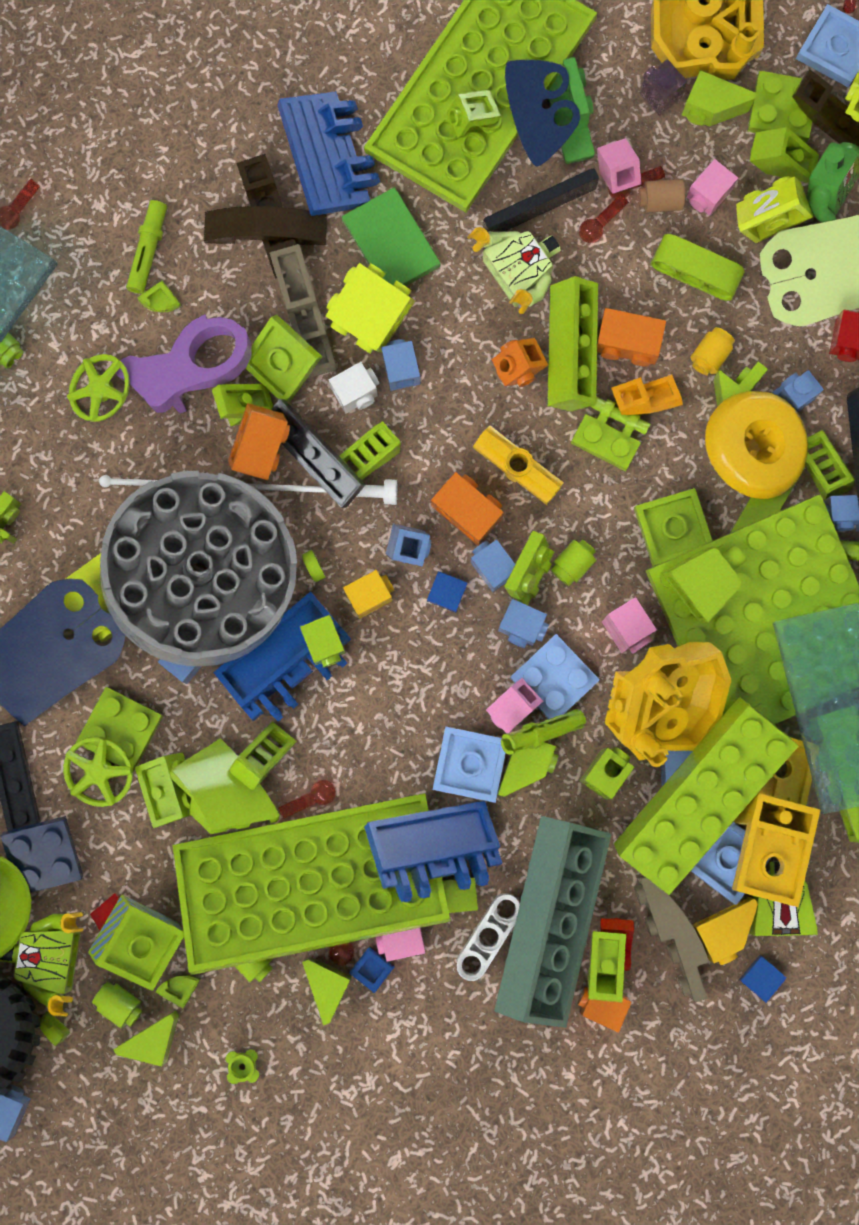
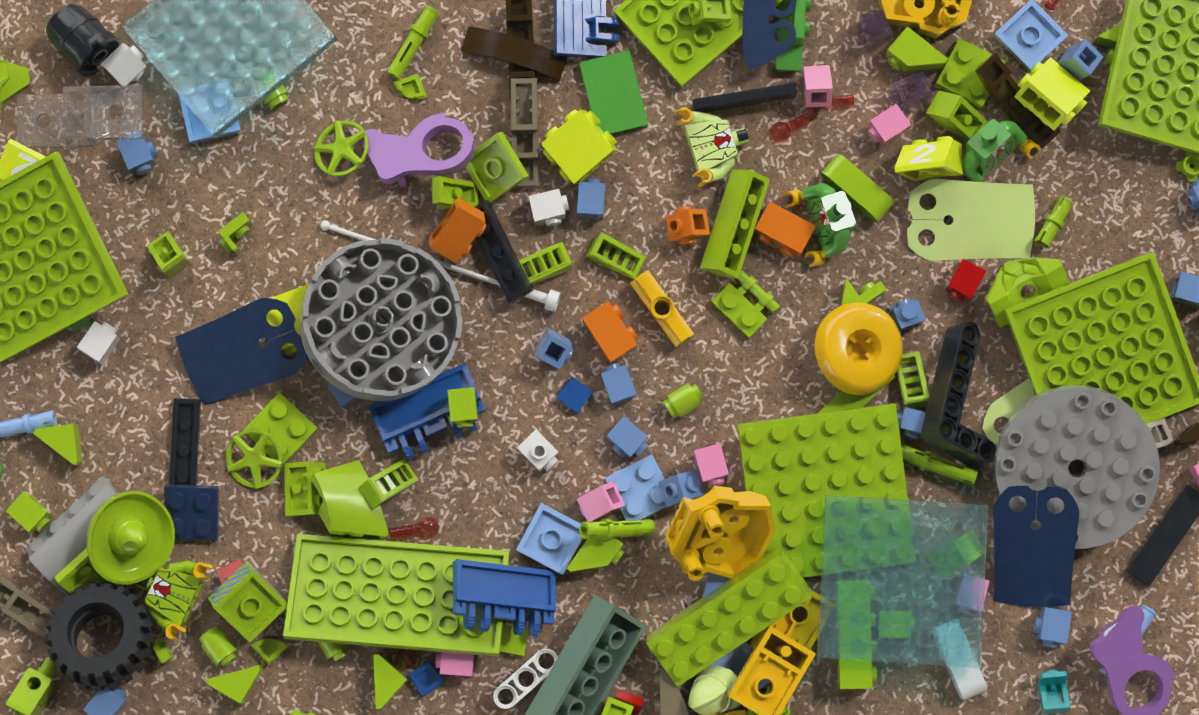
camera: 15 degrees right, 0 degrees up
(313, 566) = (473, 343): lime tile -> none
(369, 593) = (511, 378): yellow brick -> none
(425, 668) = (538, 451): none -> white brick
(432, 429) = (611, 264): none -> lime slope
(530, 569) = (645, 396): lime plate -> none
(603, 662) = (681, 485): none -> medium blue brick
(607, 772) = (654, 582): lime brick -> none
(652, 397) = (786, 284): light orange slope -> none
(662, 195) = (846, 120): medium nougat brick -> none
(672, 525) = (772, 394): lime plate -> none
(681, 303) = (831, 216): none -> bright green torso
(706, 580) = (780, 446): lime torso -> none
(710, 888) = (711, 690): none -> yellowish green piece
(712, 351) = (848, 261): yellow brick -> none
(725, 142) = (911, 91): none -> brick

